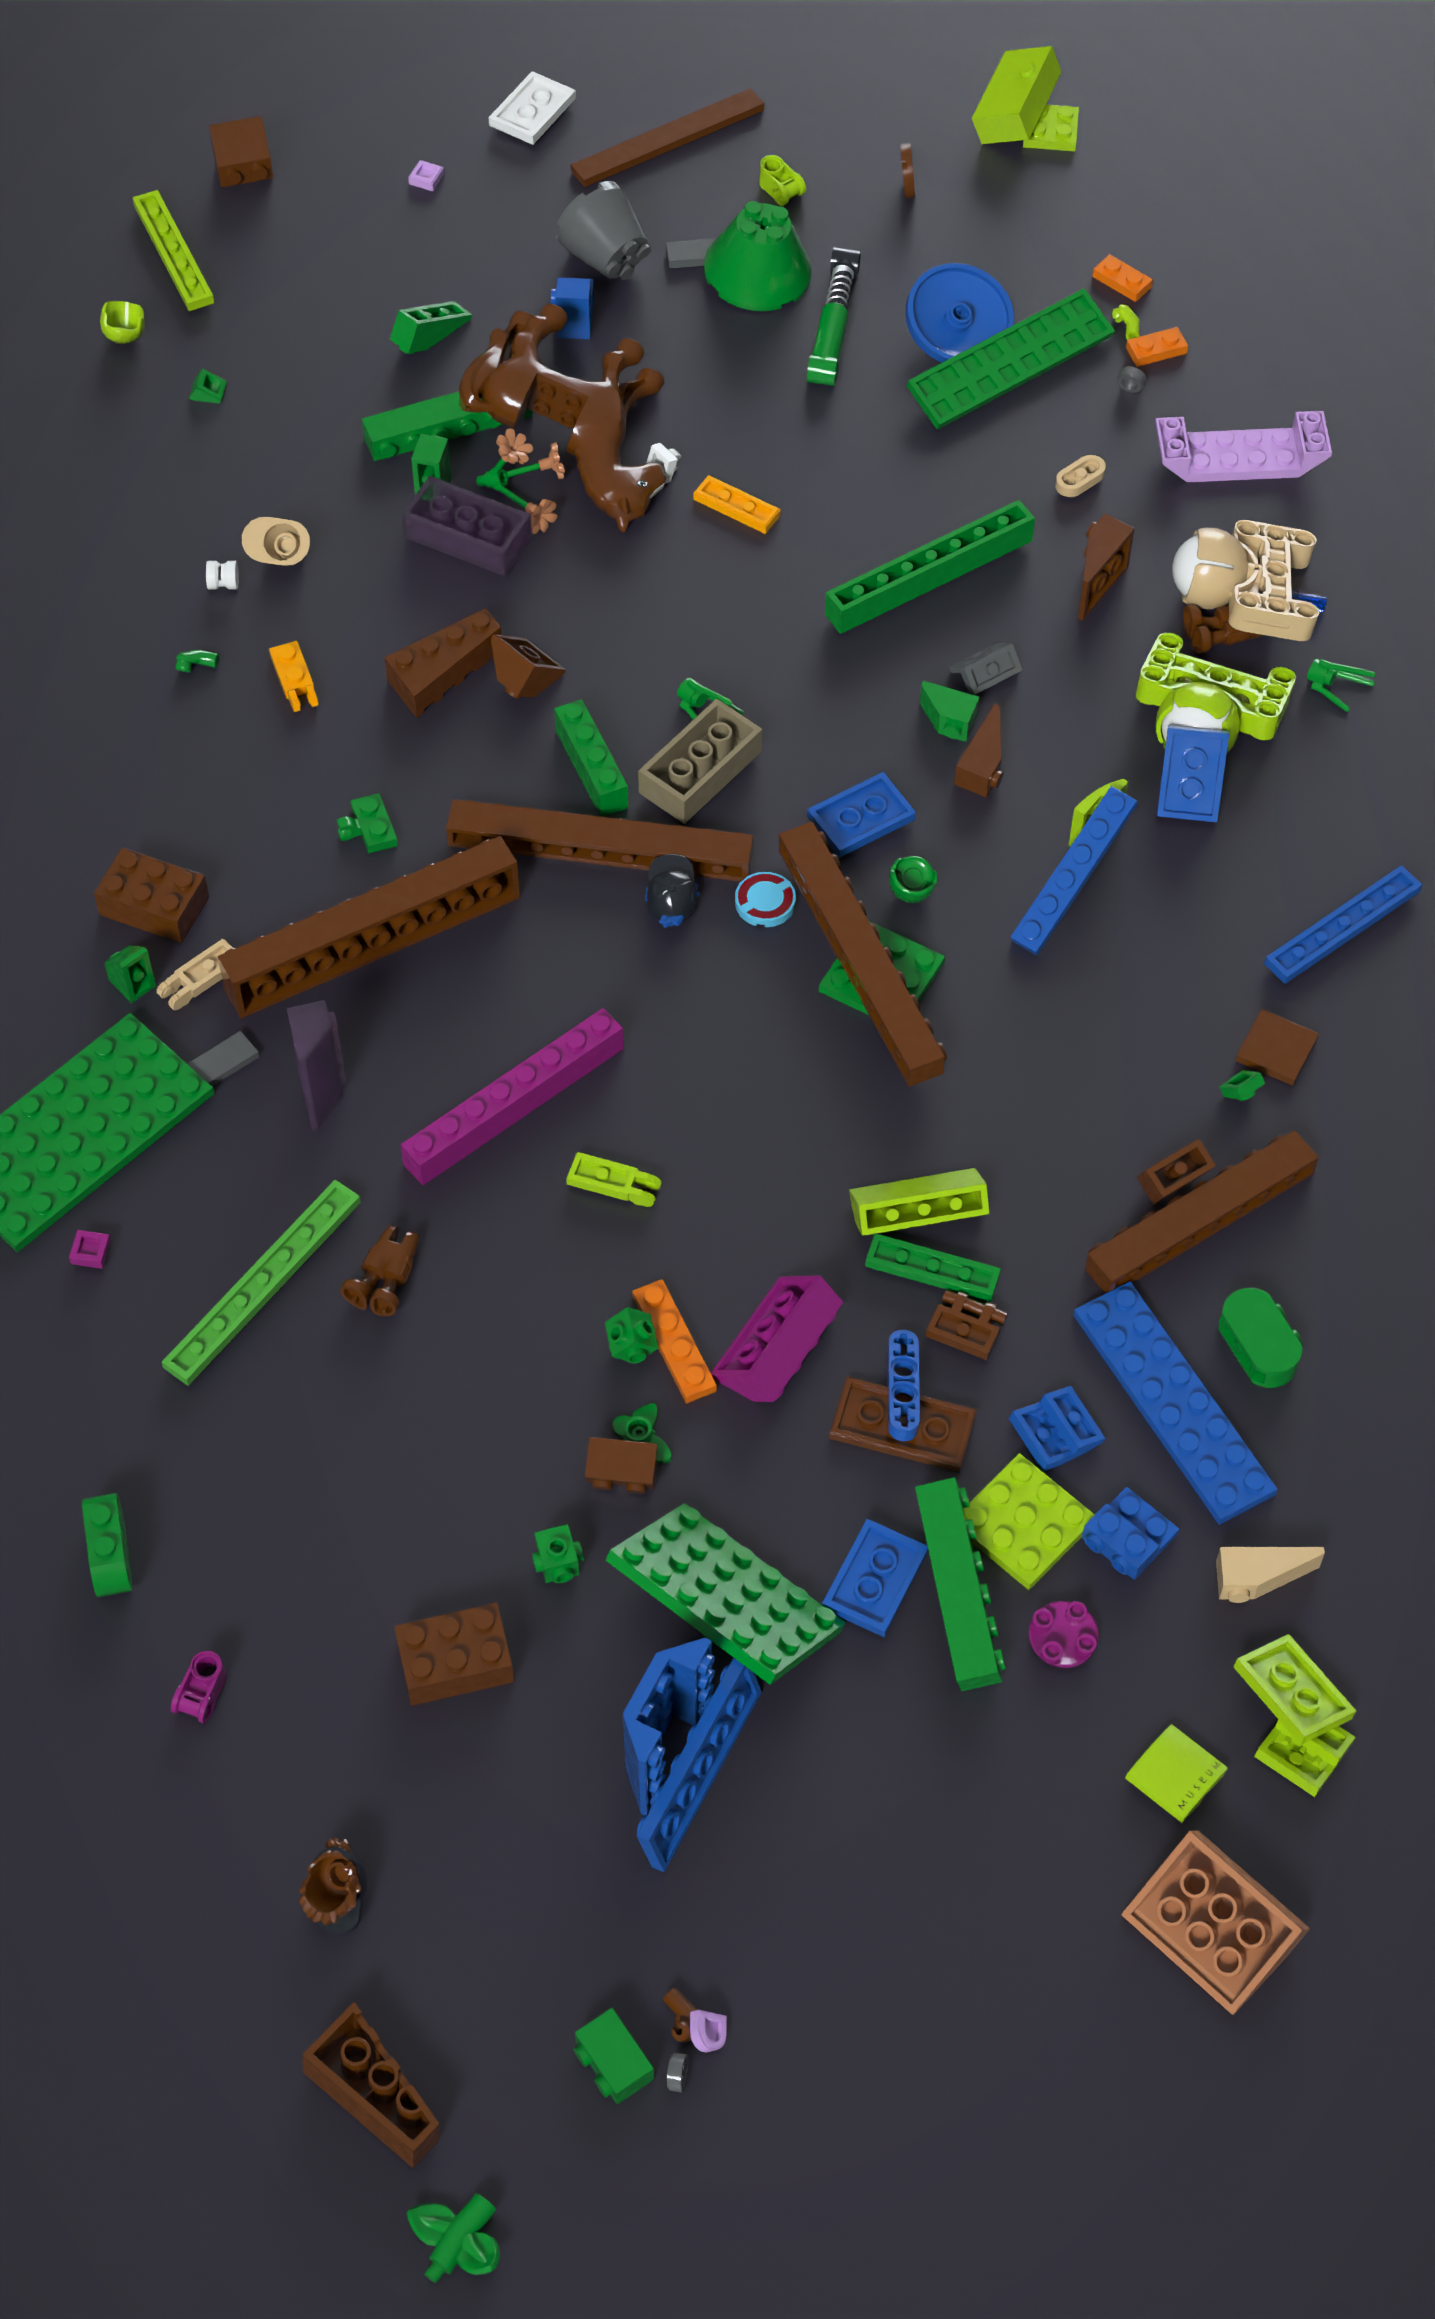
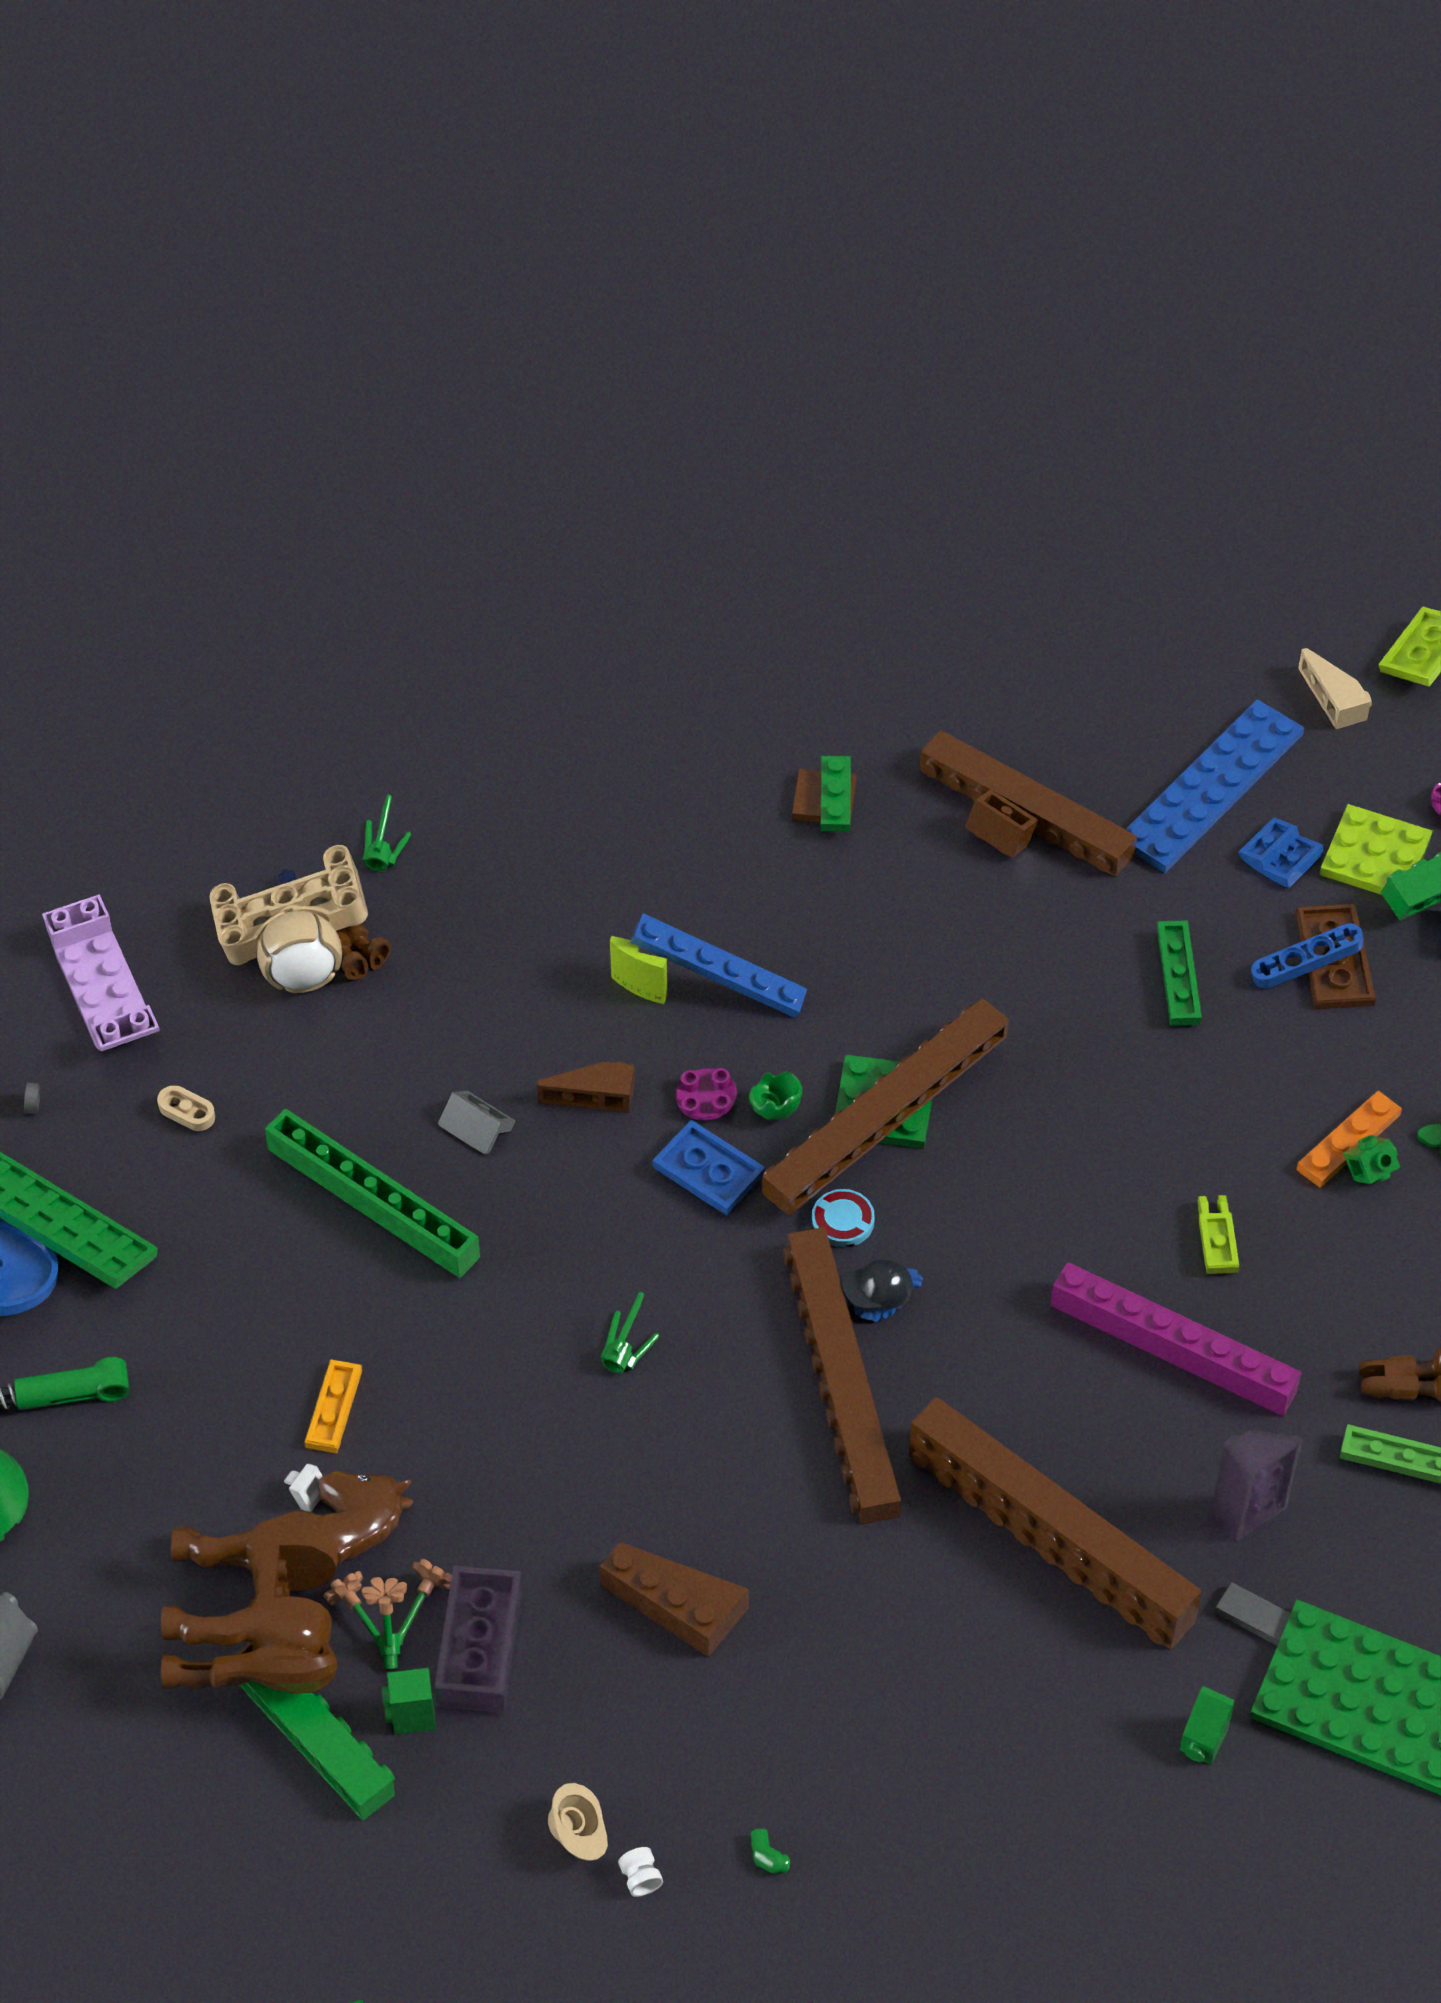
camera: 110 degrees left, 5 degrees down
(151, 895) = (1102, 1752): reddish brown brick -> none
(194, 976) = (1167, 1669): tan hinge -> none
(293, 674) = (746, 1745): light orange hinge -> none
(370, 822) = (910, 1591): green plate -> none
(425, 326) = (170, 1803): green slope -> none
(523, 666) = (648, 1514): reddish brown slope -> none
(577, 300) = (94, 1655): blue brick -> none
(591, 758) = (744, 1413): green brick -> none
(700, 761) = (711, 1311): dark tan brick -> none
(778, 1337) = (1310, 1061): magenta slope -> none
(919, 1201) = (1120, 998): lime brick -> none
(945, 838) = (706, 1093): none -> magenta dish
(949, 710) = (551, 1129): green slope -> none
(964, 1331) = (1229, 935): reddish brown plate -> none
(1105, 560) = (321, 1047): reddish brown slope -> none
(1129, 1533) = (1349, 781): blue plate -> none
(1192, 773) = (564, 905): blue plate -> none
(1211, 695) = (457, 916): lime beam -> none
(1242, 1085) = (882, 806): green plate -> none
(1260, 1337) = (1126, 738): green brick -> none
(1270, 1048) = (835, 793): none -> green plate
(1343, 924) = (671, 777): blue plate -> none

